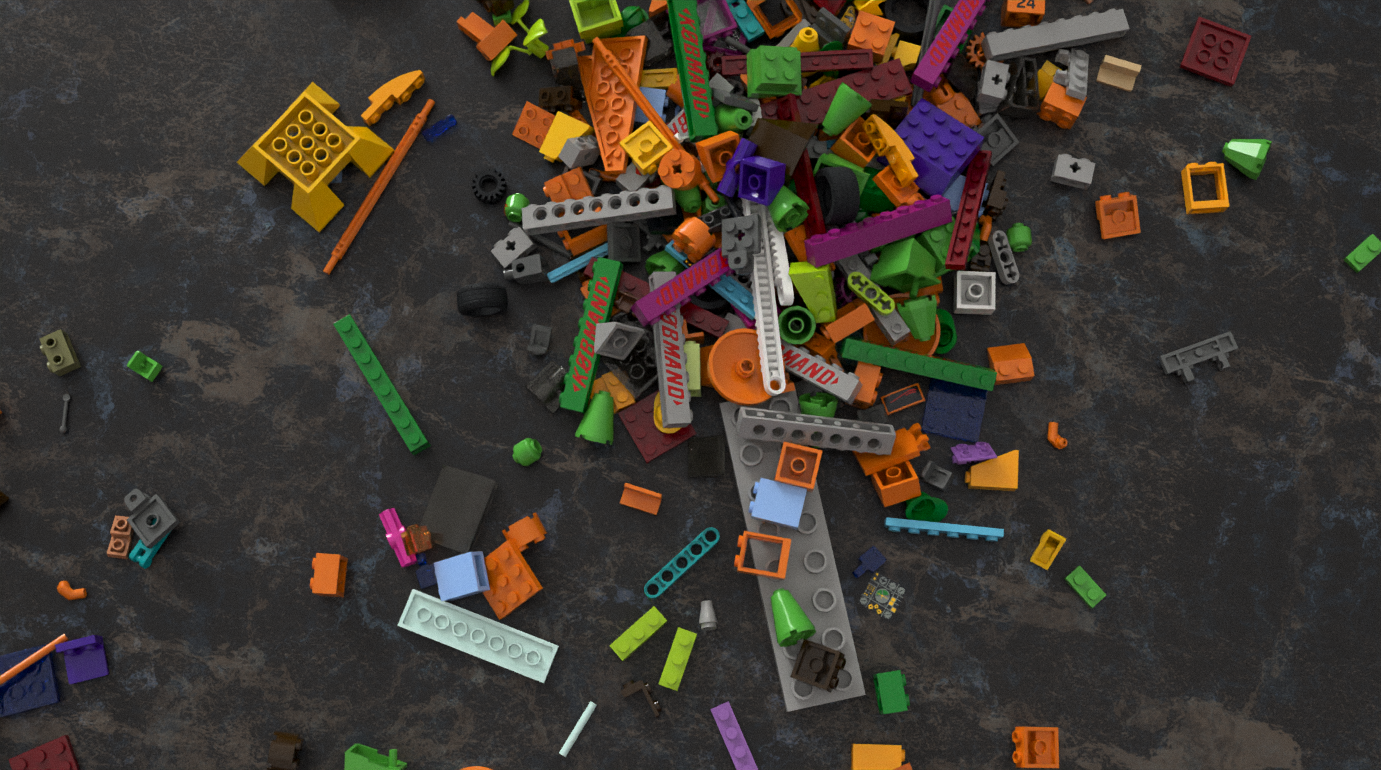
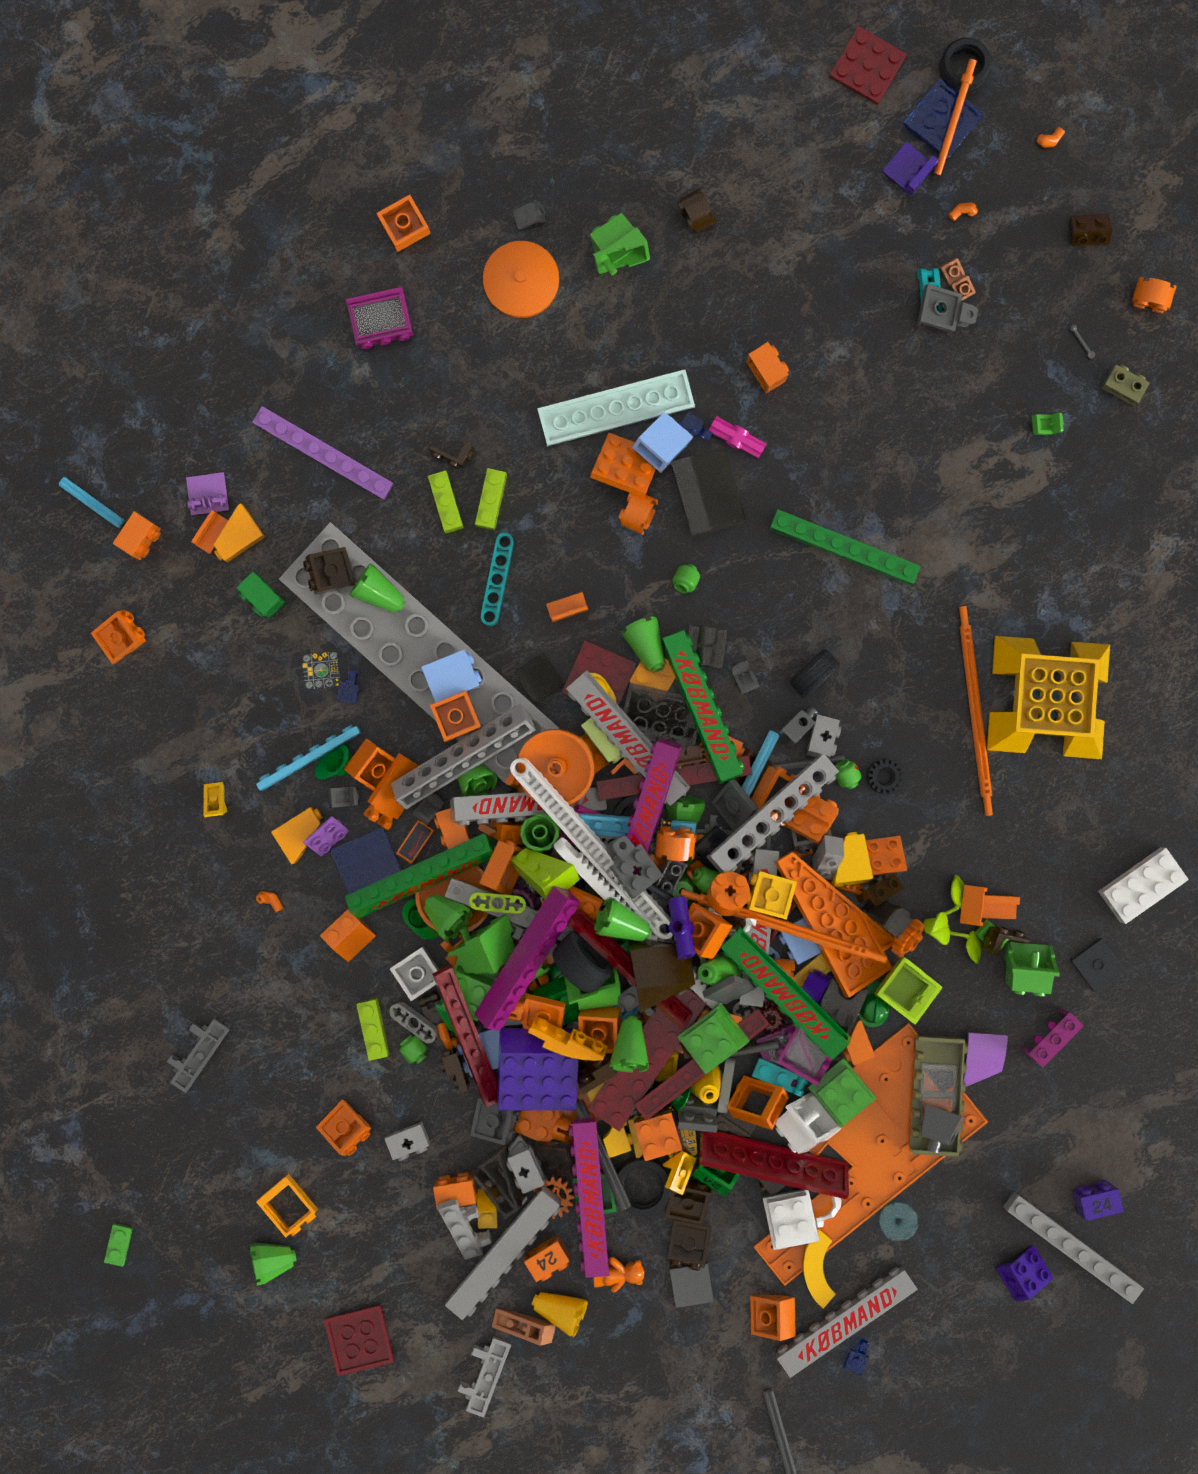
camera: 145 degrees right, 10 degrees up
(396, 90) = (1024, 803): light orange slope -> none
(416, 539) = (719, 444): clear orange brick -> none
(439, 127) = (965, 797): clear blue axle -> none
(577, 729) = (485, 394): light aqua bar -> none
(616, 339) = (678, 714): light grey slope -> none
(664, 63) = (816, 984): none -> dark purple hinge
(707, 616) = (447, 553): light grey cone -> none
(760, 179) = (652, 928): dark purple slope -> none
(783, 560) = (409, 621): orange window -> none
(1041, 275) = (373, 1029): none -> lime brick
(1085, 587) = (165, 793): bright green plate -> none
(1118, 73) = (428, 1259): tan panel -> none

